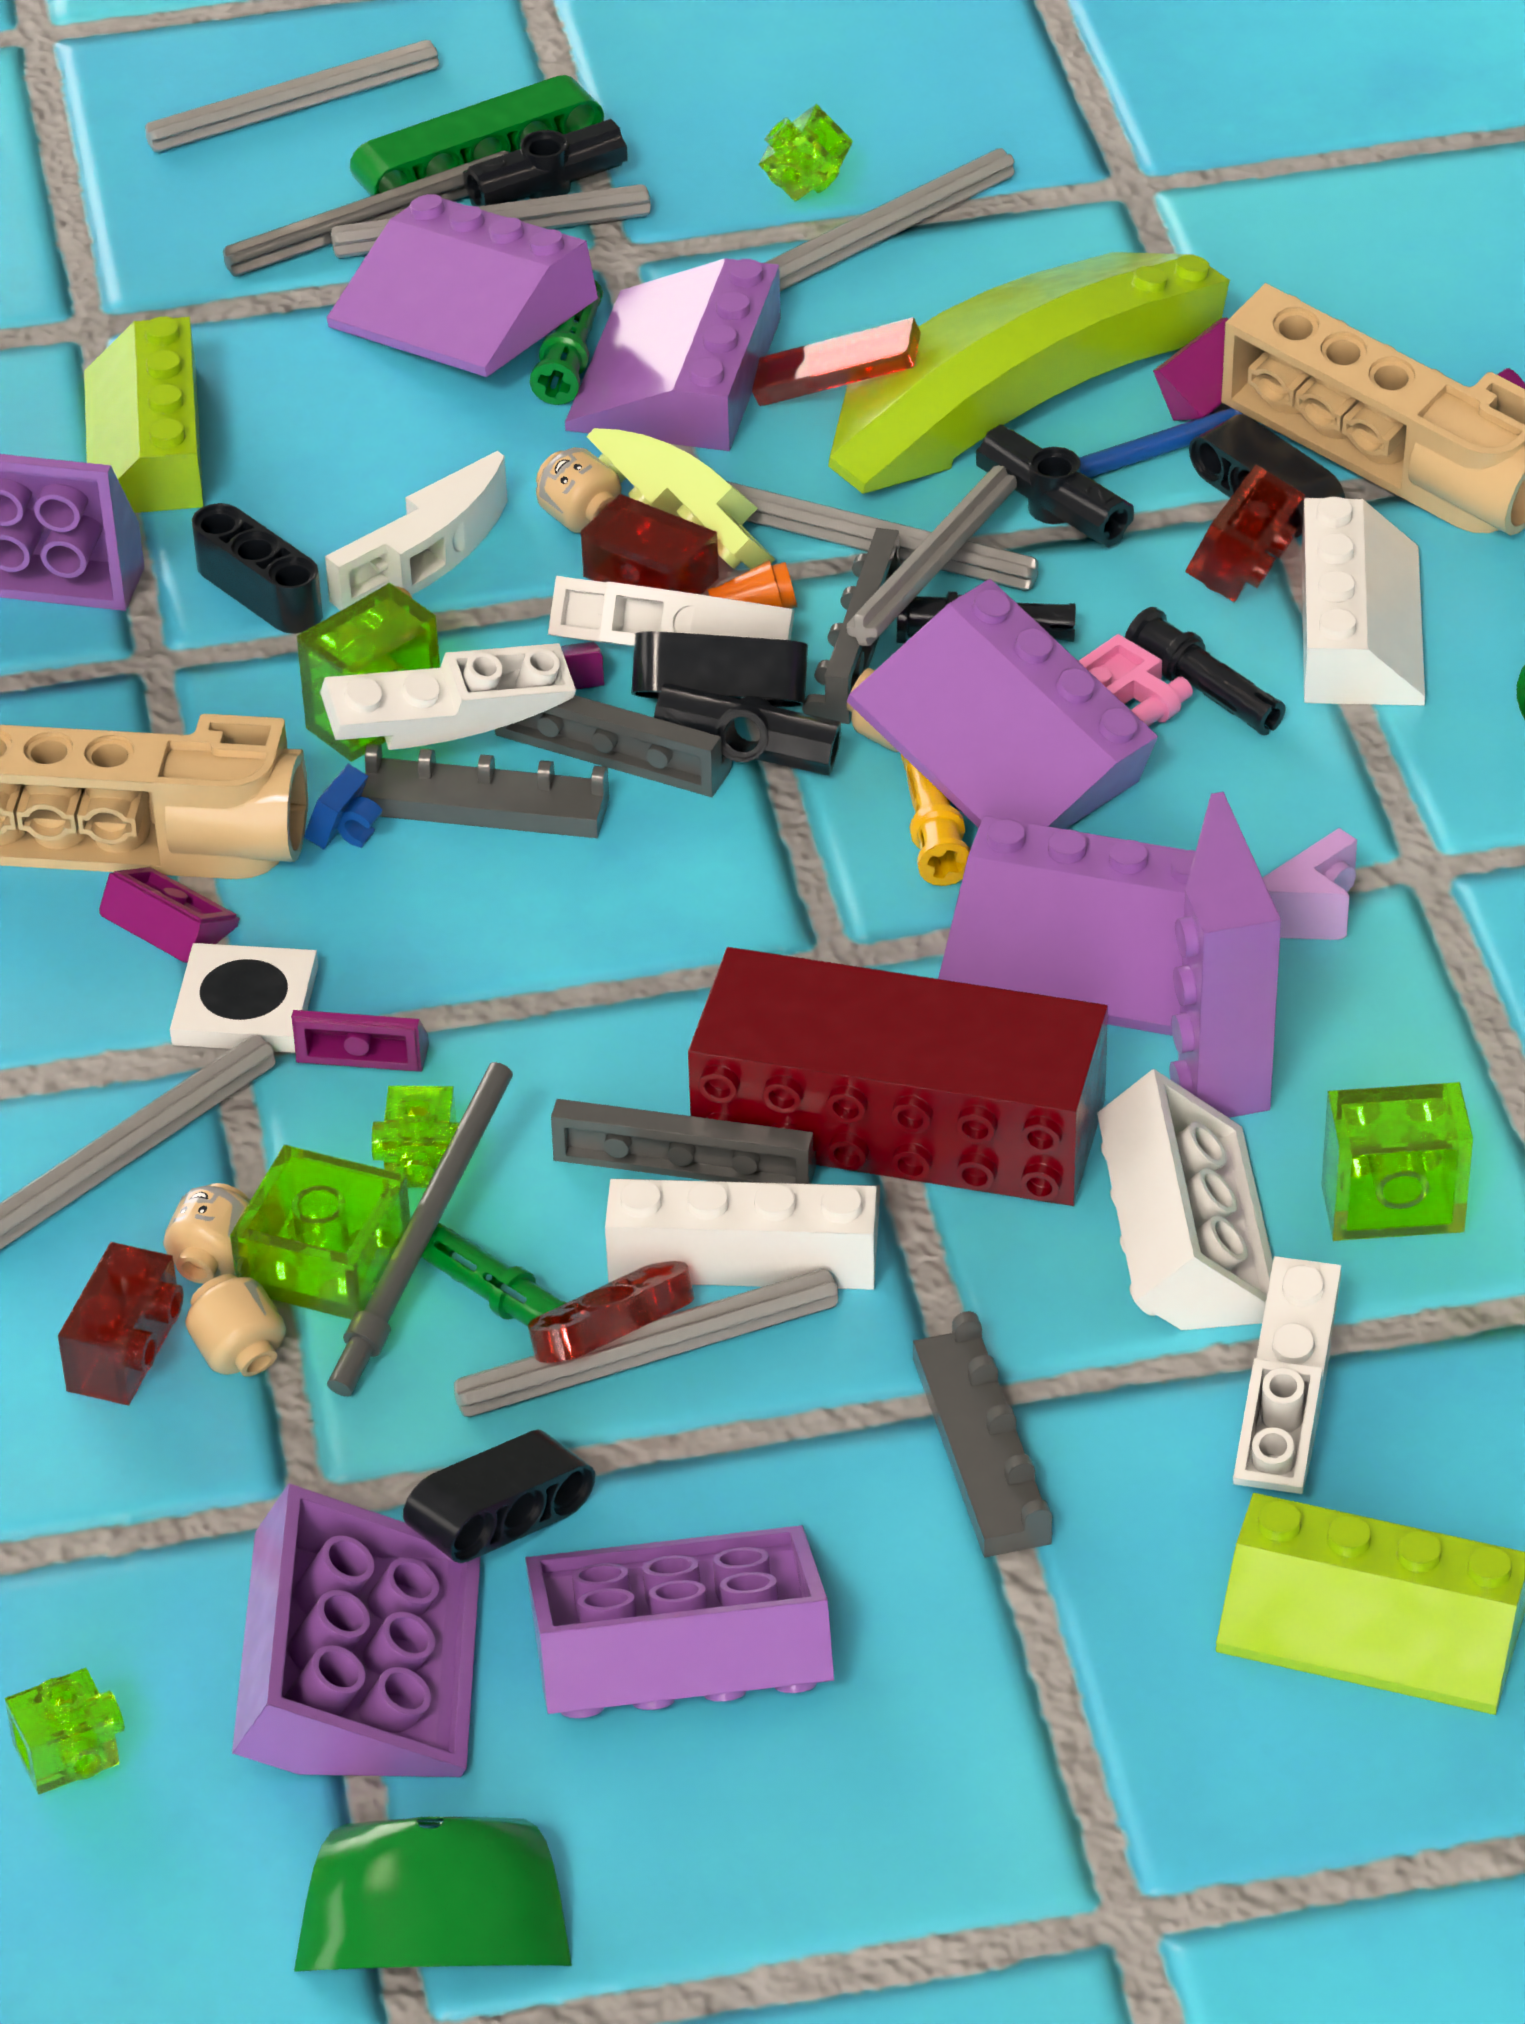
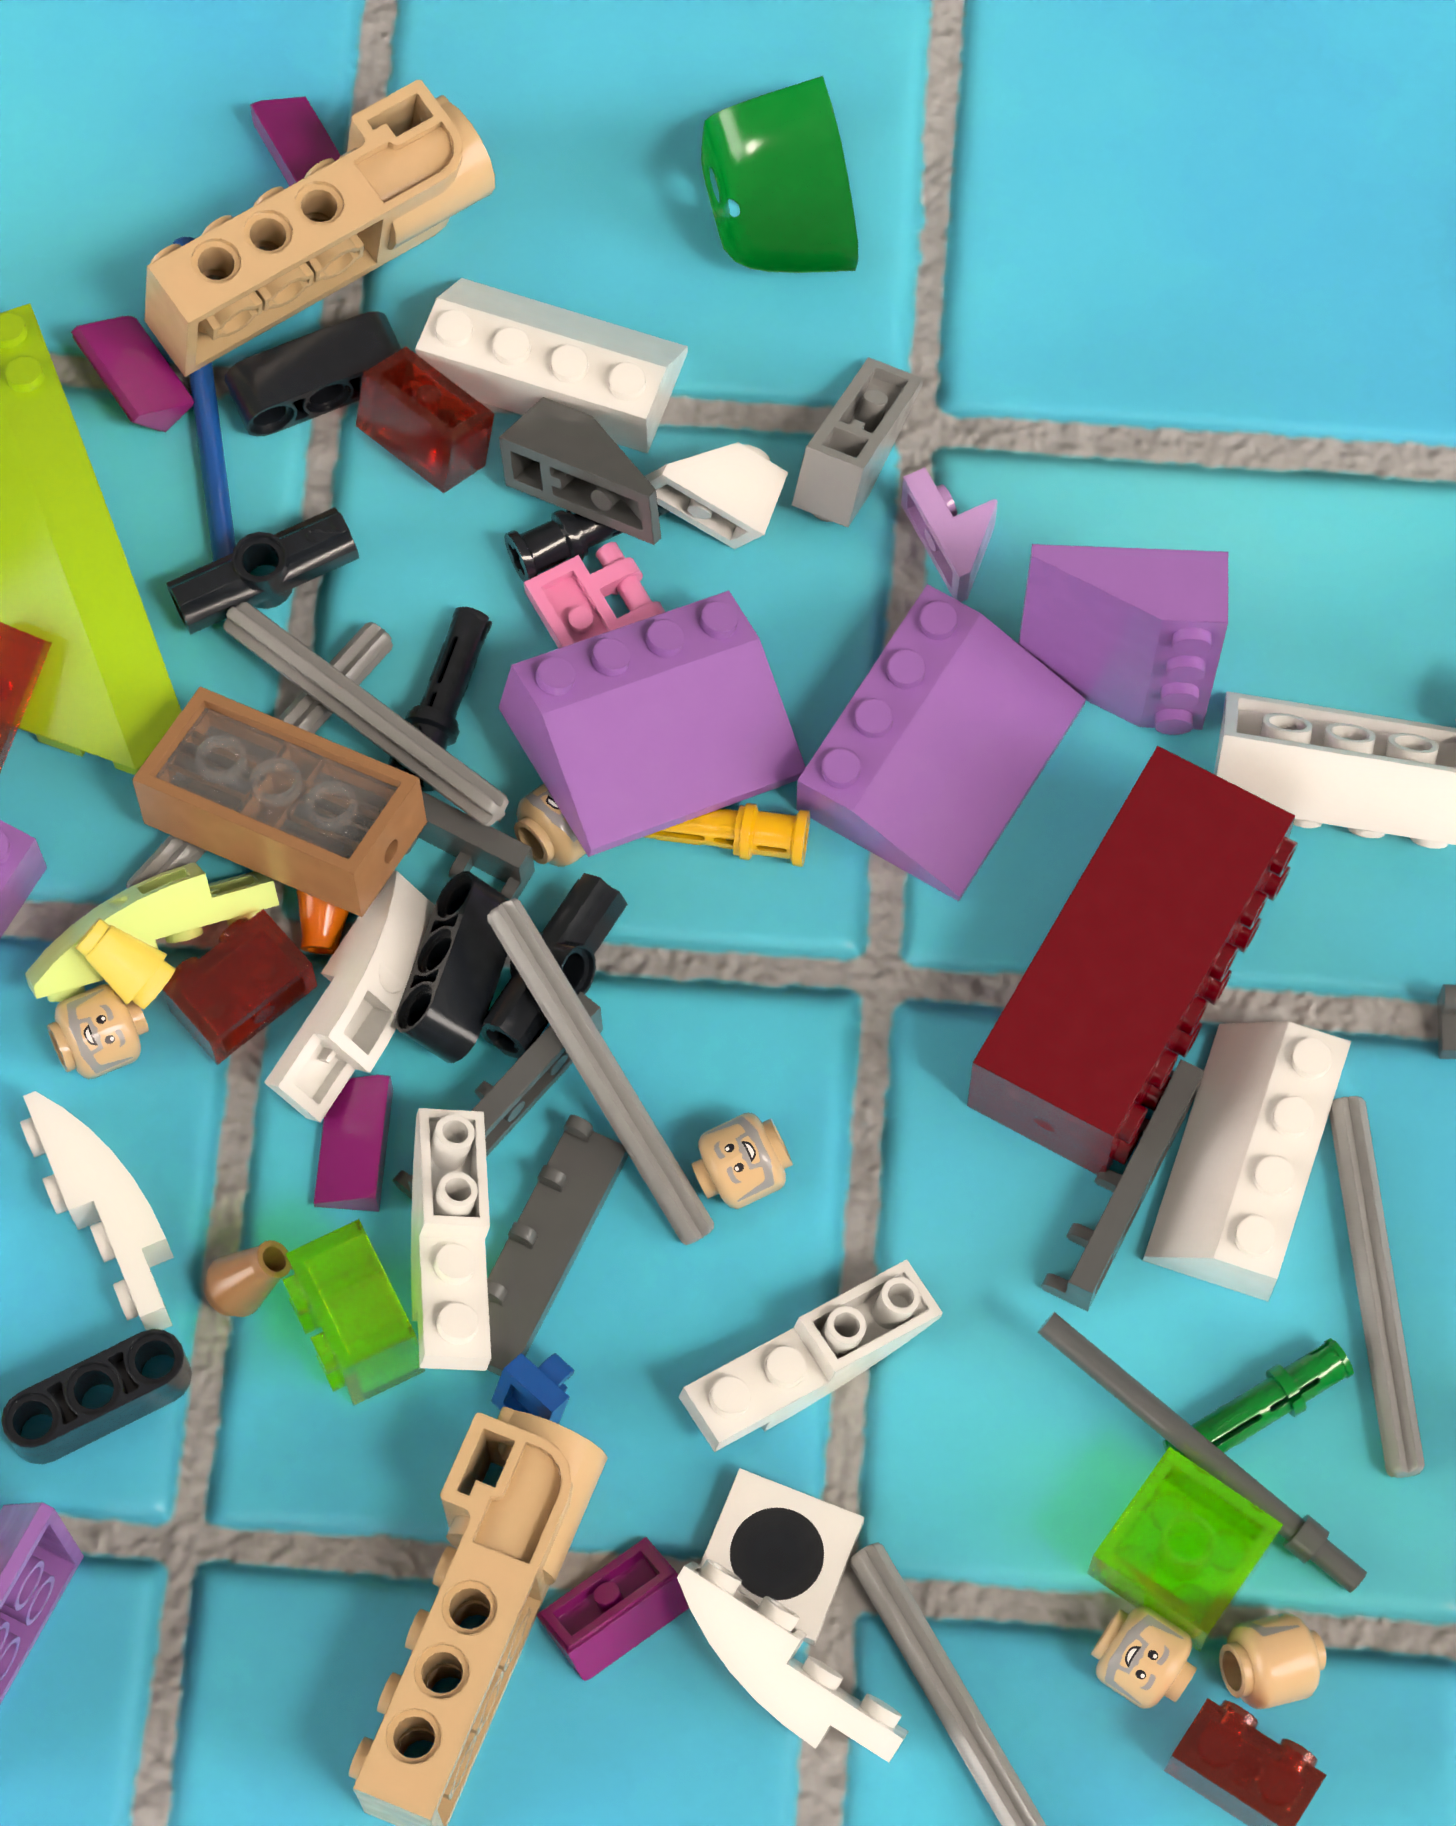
camera: 75 degrees left, 25 degrees up
(132, 988) = (759, 1651): none -> white slope
(359, 1040) = (881, 1451): magenta slope -> none
(415, 1131) = (1050, 1420): clear neon green brick -> none
(434, 974) = (812, 1358): none -> white slope
(606, 884) = (742, 1160): none -> tan head
(610, 1311) = (1326, 1291): clear red beam -> none
(631, 462) = (126, 963): none -> light yellow cone
(646, 762) = (600, 1071): none -> light grey axle
(816, 511) = (280, 801): none -> brick
(1245, 627) = (579, 467): none -> dark grey slope
(1270, 721) = (722, 491): none -> white slope
(1374, 805) = (855, 442): none -> light grey slope
(1396, 1161) = (1361, 573): clear neon green brick -> none

